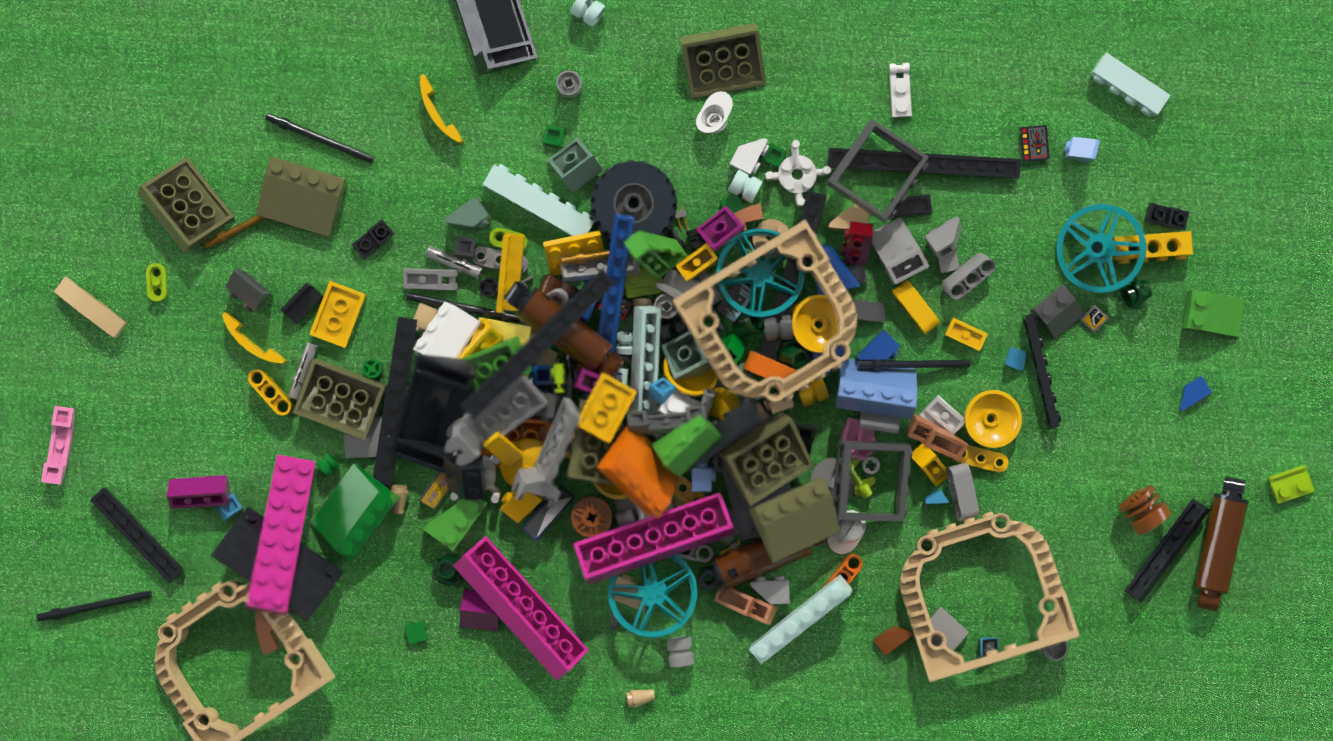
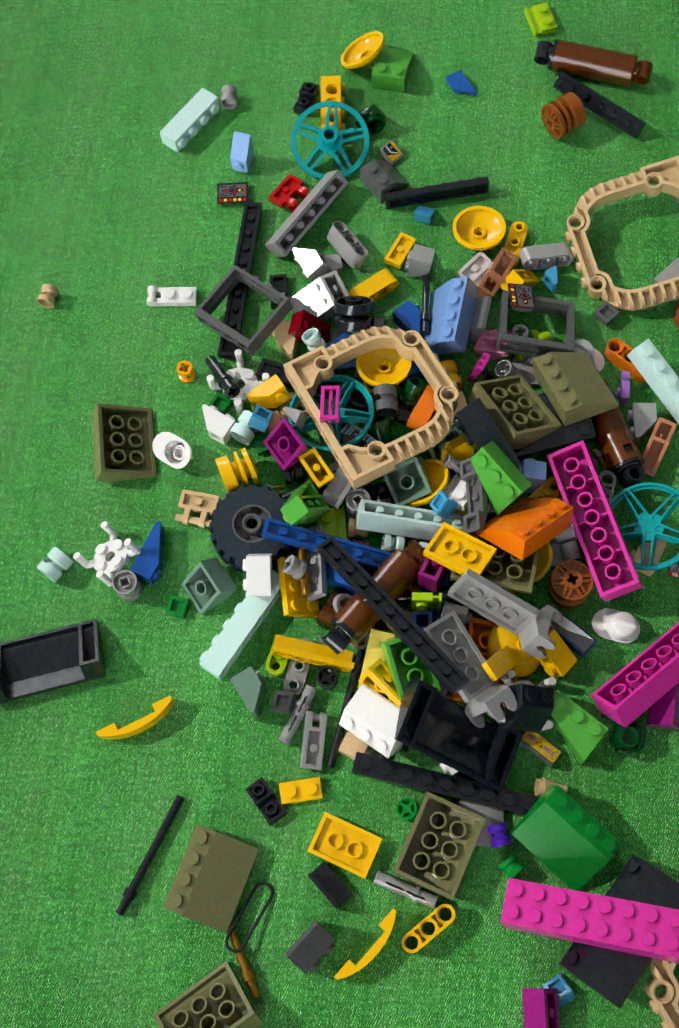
camera: 80 degrees left, 20 degrees down
(265, 239) = (240, 914): none -> black piece
(353, 453) = (499, 834): none -> dark purple wheel
(384, 270) = (300, 790): none -> yellow plate
(558, 561) = (616, 625): none -> white piece
(579, 214) = (258, 575): none -> white brick
(588, 248) = (294, 567): none -> light grey wheel
(598, 103) = (150, 561): none -> blue slope
(601, 55) = (122, 550): none -> white plate
(661, 147) = (196, 502): none -> tan plate
(693, 182) = (237, 471): none -> yellow wheel
(747, 238) = (296, 416): none -> light grey slope
(751, 201) = (260, 418): none -> dark azure slope
(752, 272) = (330, 417): none -> dark pink tile
(783, 207) = (269, 394): none -> yellow slope
(794, 159) = (225, 380): none -> black pin
(805, 571) = (623, 391): none -> medium lavender plate
(807, 122) = (182, 371): none -> light orange bush
(821, 452) = (505, 368): none -> light grey wheel
(828, 423) = (478, 367): none -> dark pink tile
(839, 249) = (312, 339): none -> light aqua wheel
(873, 289) = (354, 313): none -> black wheel
(897, 555) = (606, 313): none -> dark grey plate
(901, 465) = (522, 297): none -> piece
(946, 355) = (419, 261): none -> light grey slope
(1005, 229) = (306, 214): none -> light grey brick
(1038, 204) = (284, 193): none -> red plate
(1165, 126) = (229, 96): none -> light grey wheel
(1230, 277) = (363, 50): none -> yellow dish

